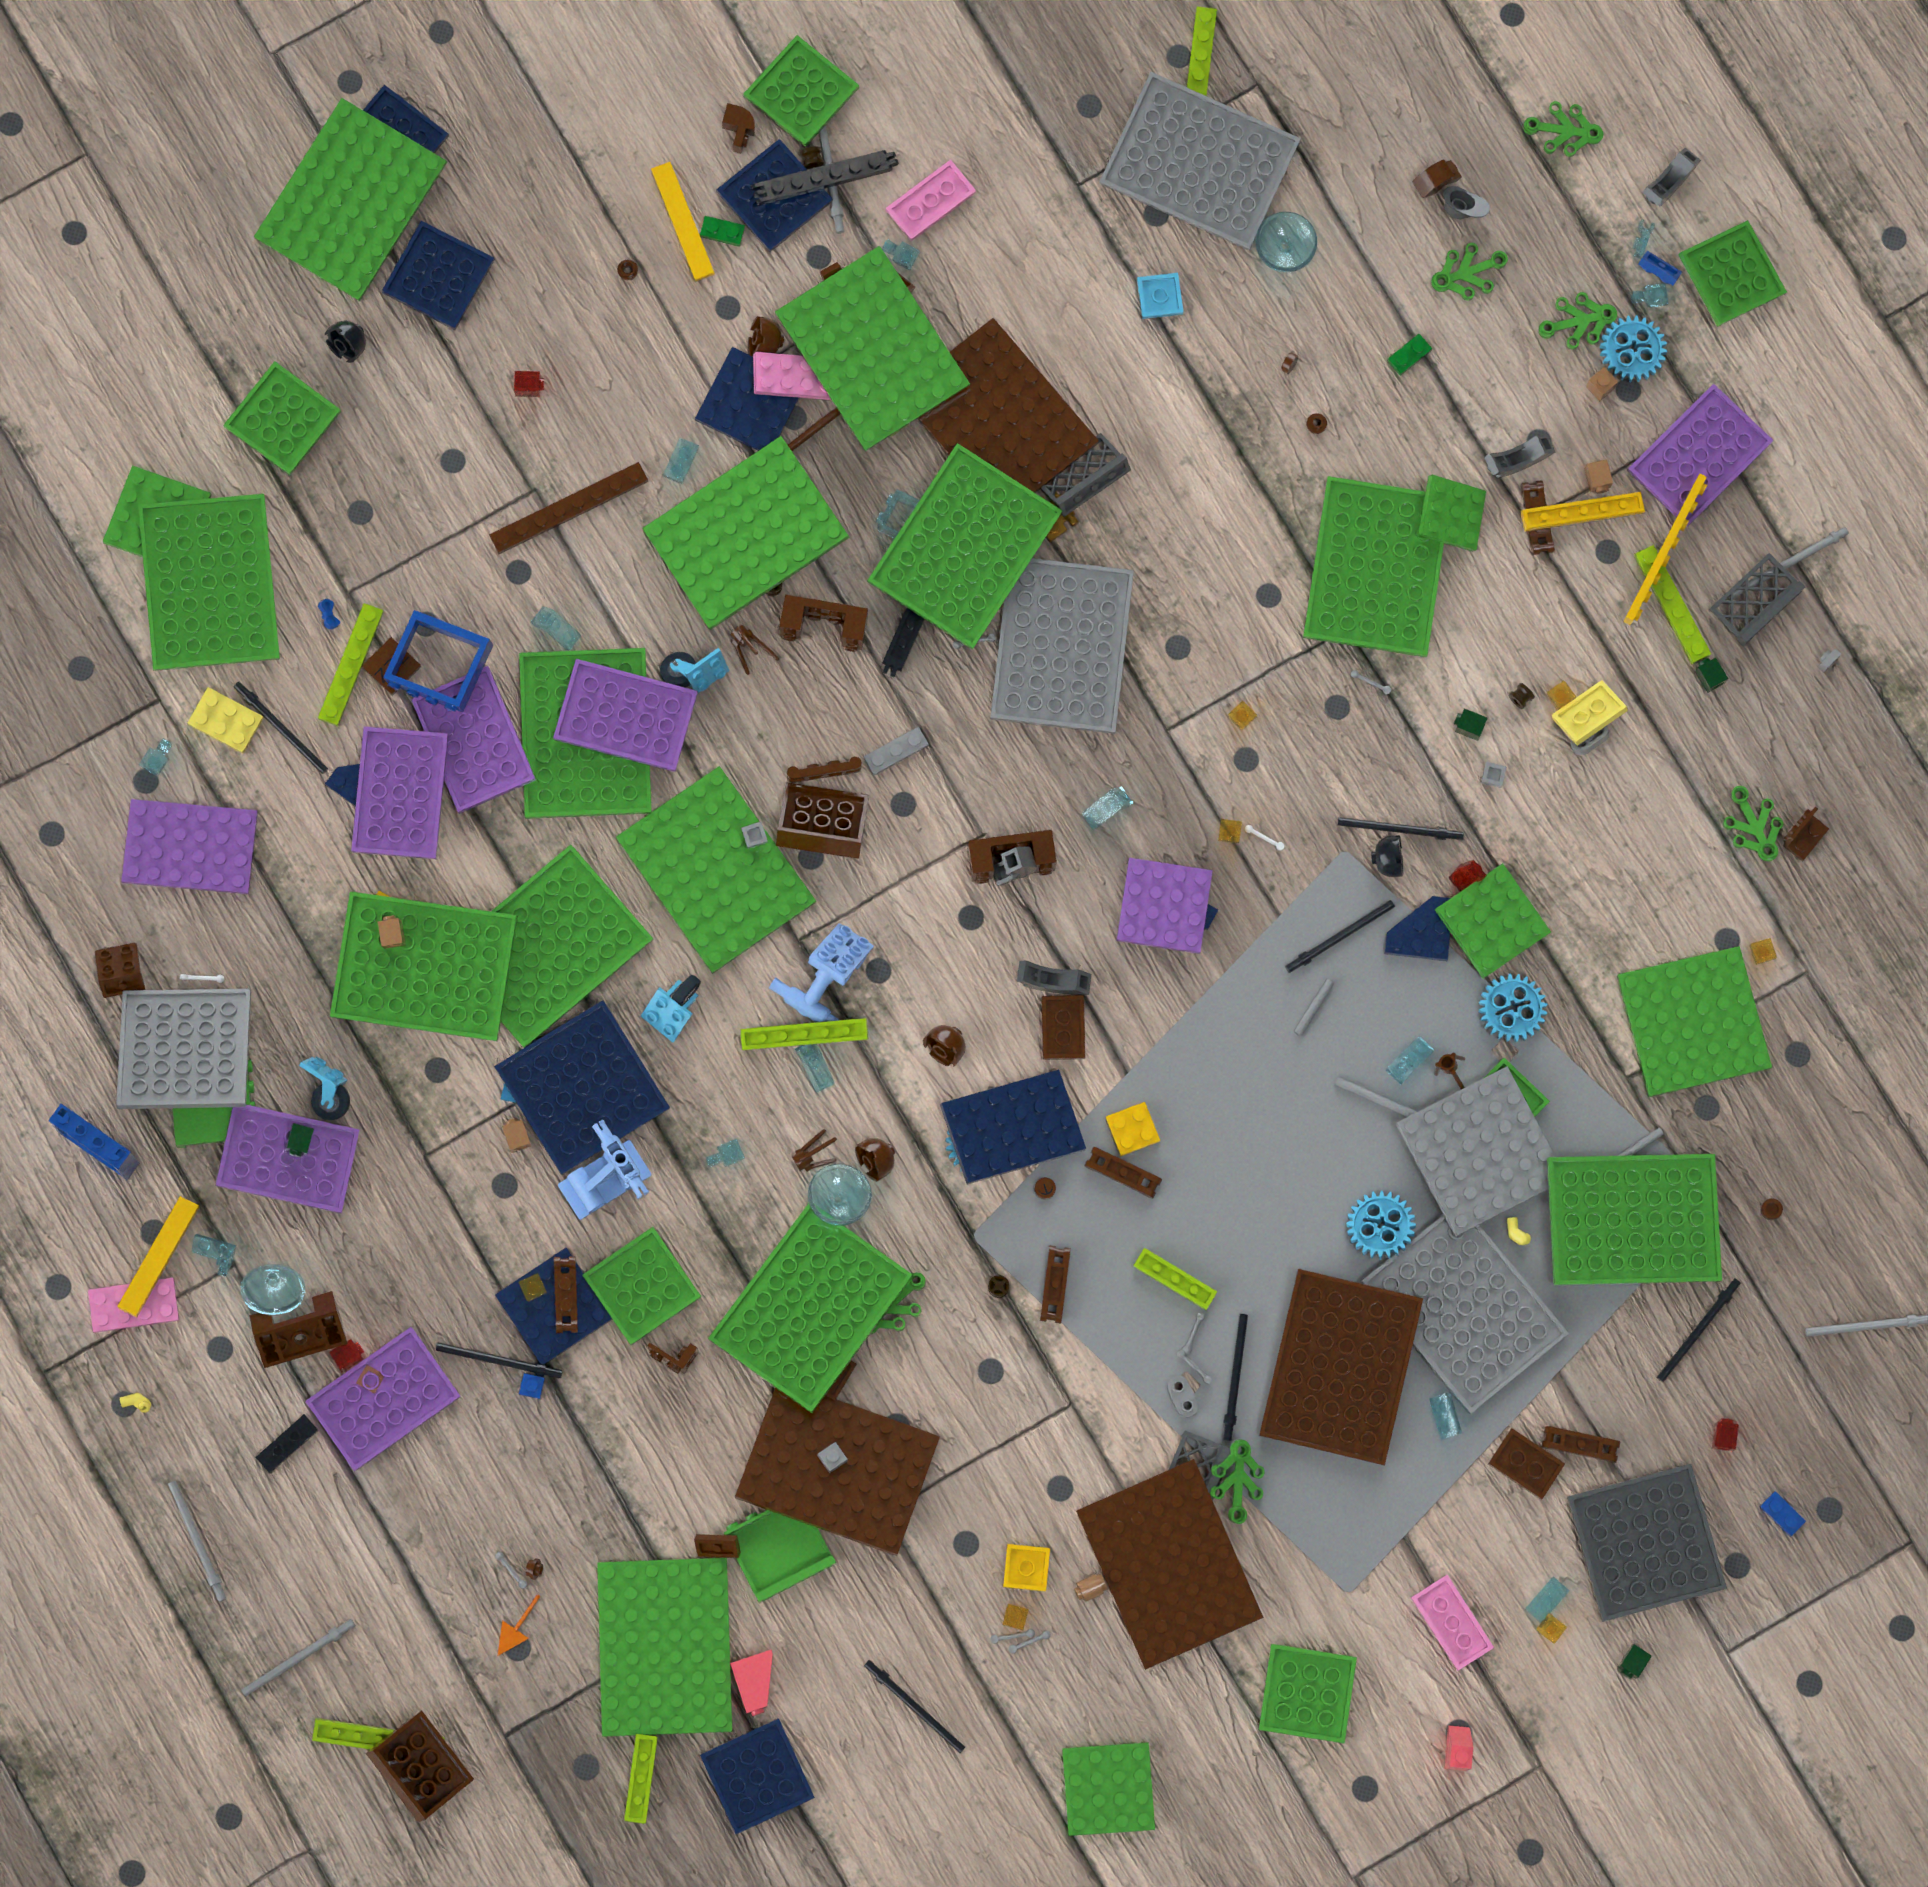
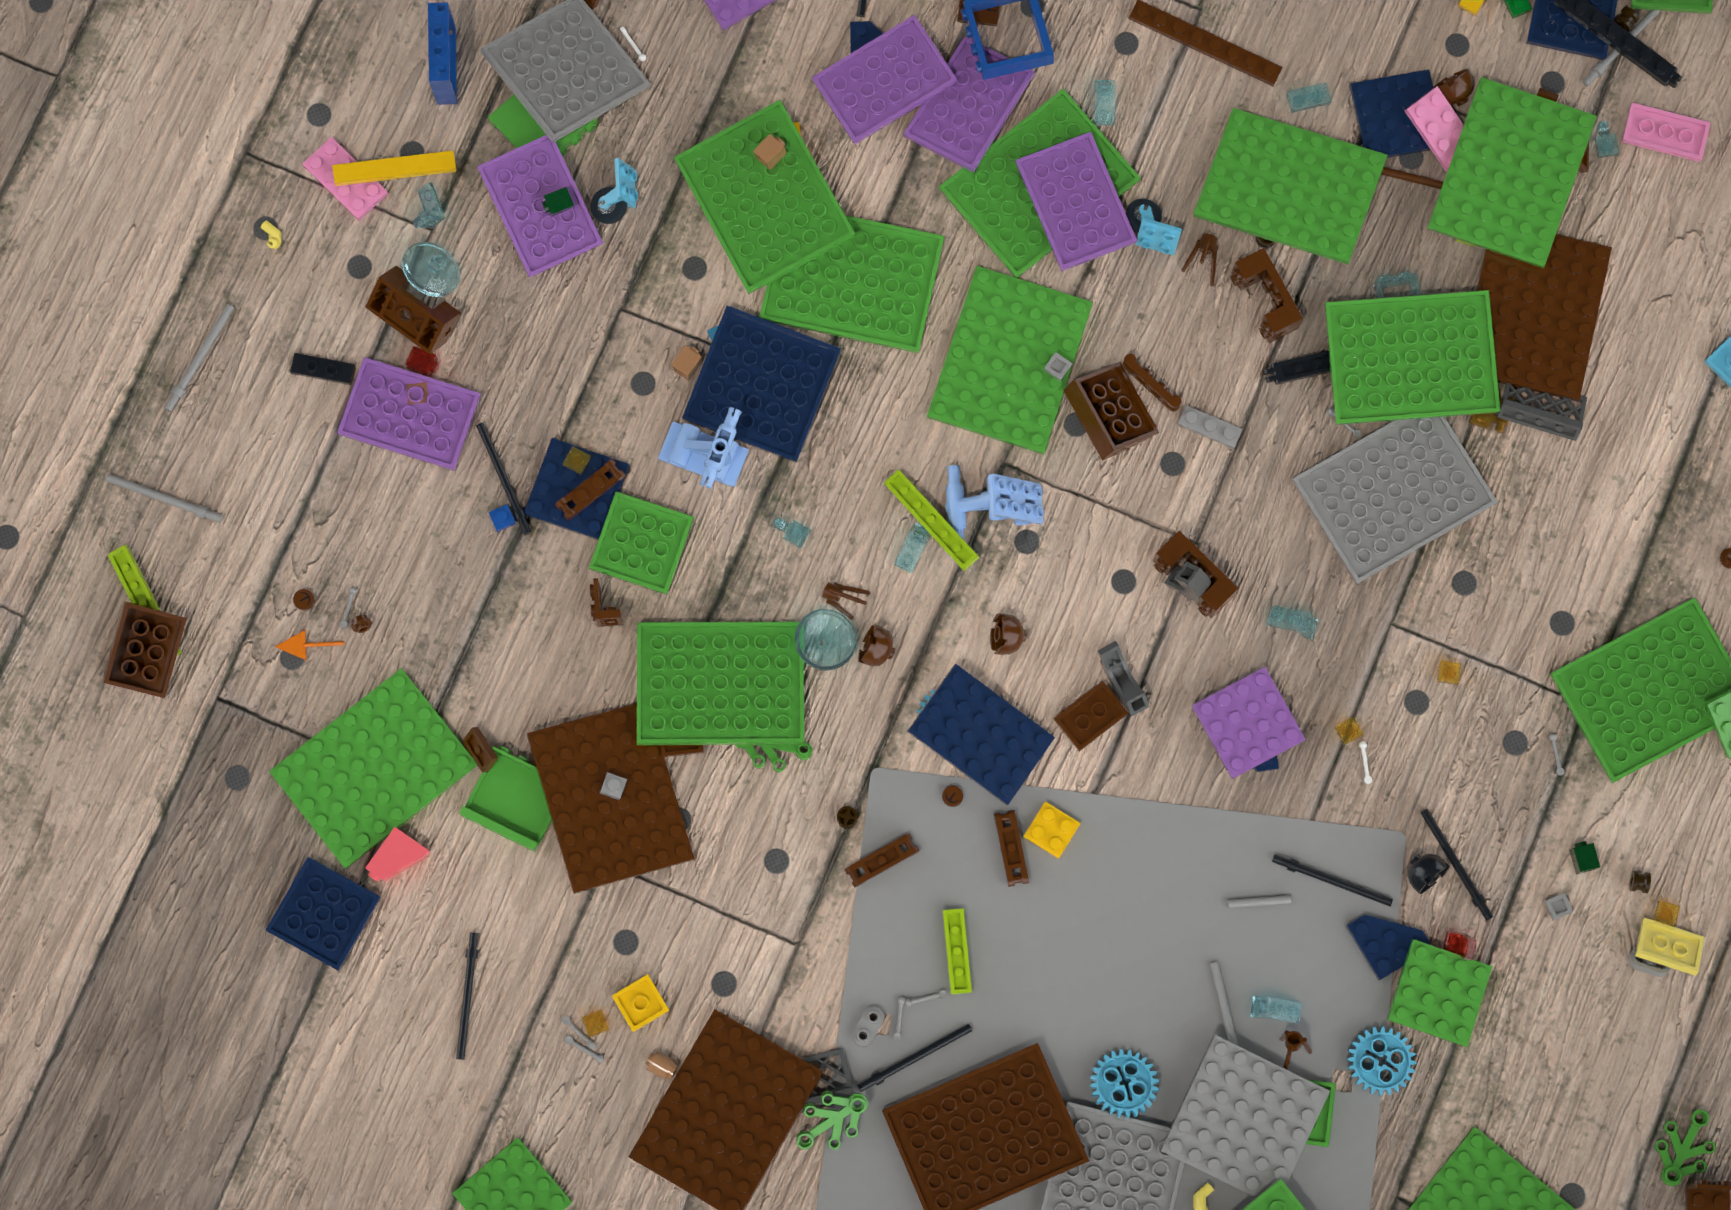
camera: 60 degrees right, 0 degrees up
(476, 1602) = (303, 599): none -> reddish brown tile
(640, 1778) = (256, 825): lime plate -> none
(672, 1014) = (871, 404): medium azure plate -> none

